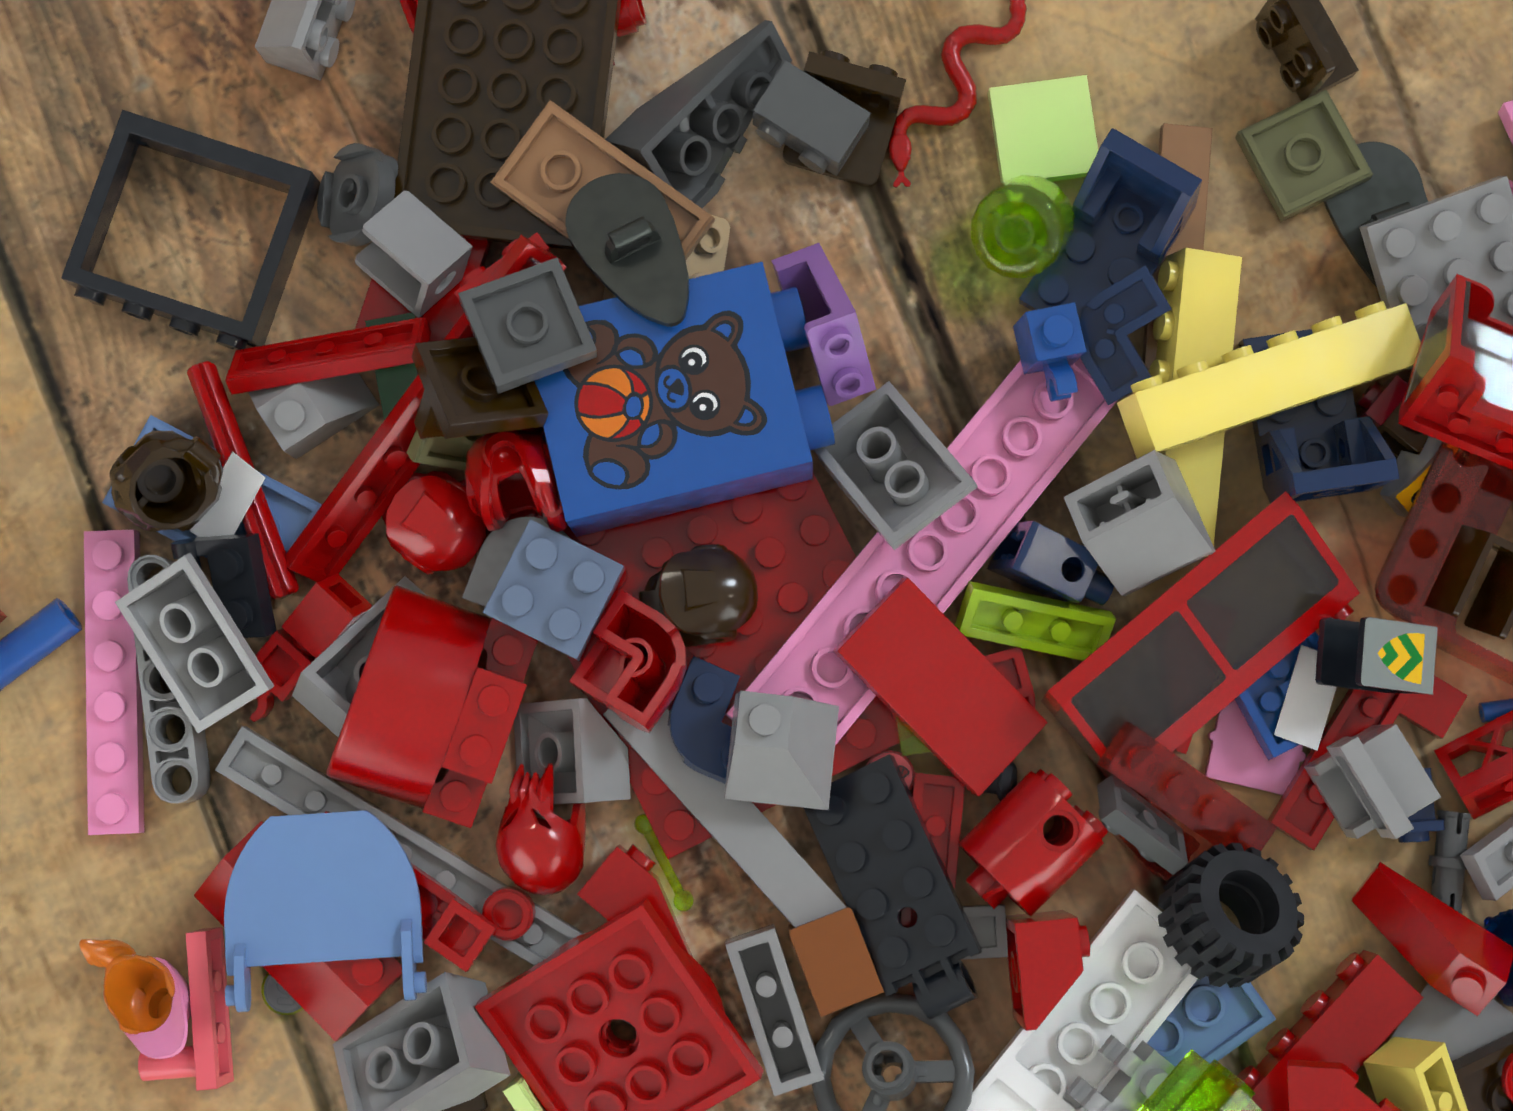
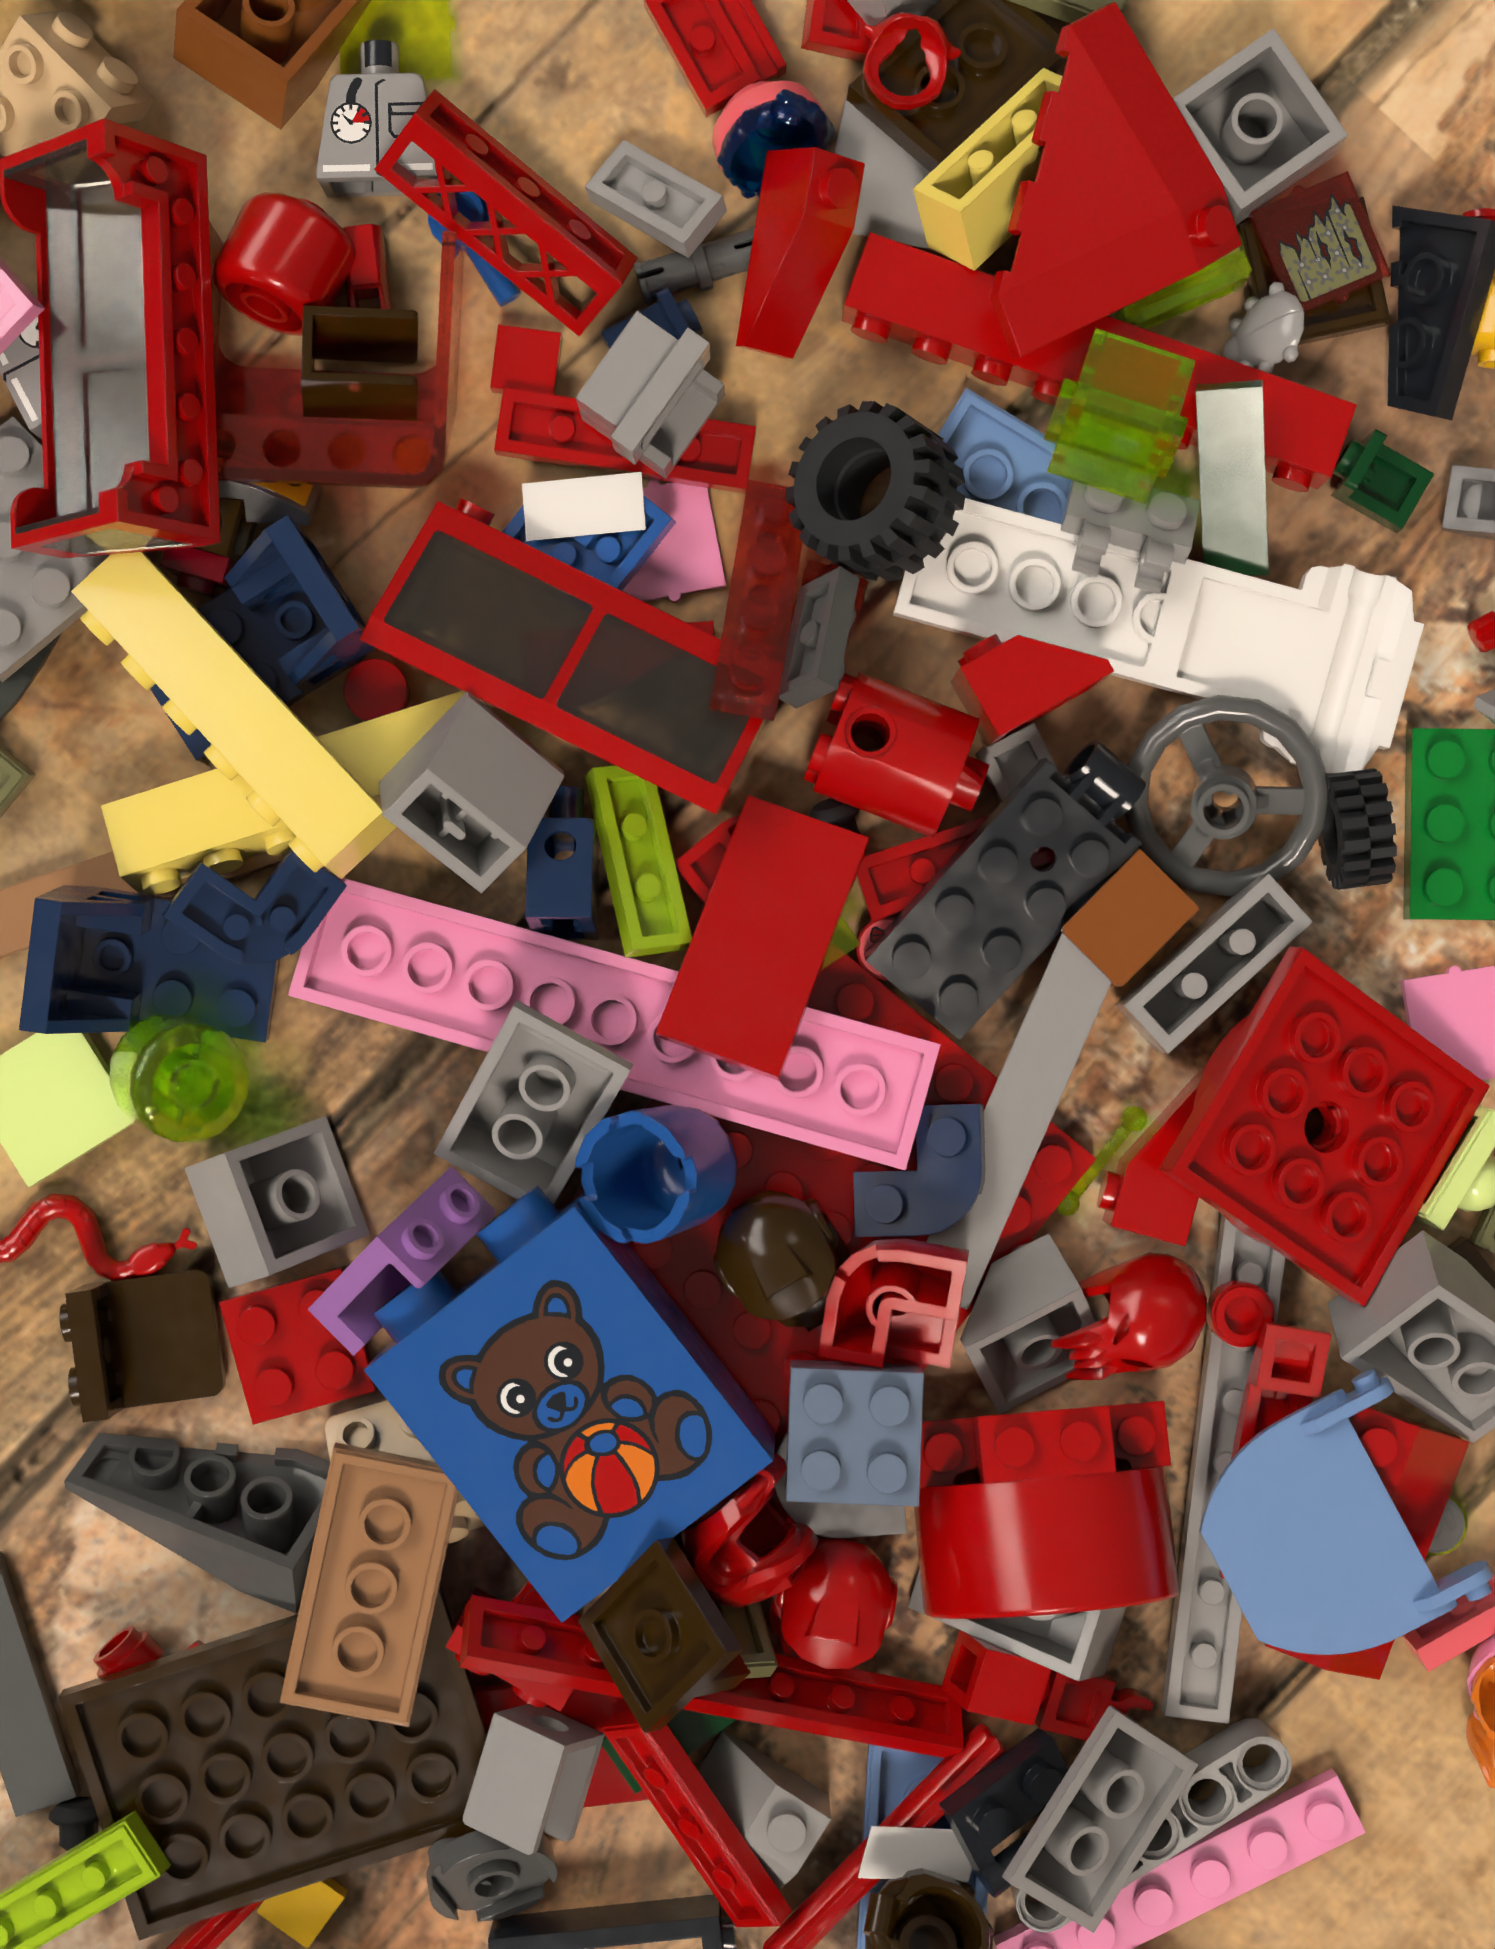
camera: 115 degrees left, 5 degrees up
(391, 54) = (304, 1910): none -> yellow tile
(527, 325) = (564, 1612): dark grey plate -> none
(631, 245) = (412, 1530): pearl dark grey shield -> none
(781, 750) = (921, 1088): light grey slope -> none
(787, 216) = (287, 1354): none -> red plate
(808, 531) = (655, 1172): none -> blue cylinder
(809, 119) = (163, 1383): dark grey brick -> none
(902, 256) = (277, 1202): none -> light grey slope
(1051, 343) = (306, 985): blue brick -> none
(1239, 489) = (375, 689): none -> red tile
(1376, 655) = (503, 451): piece -> none

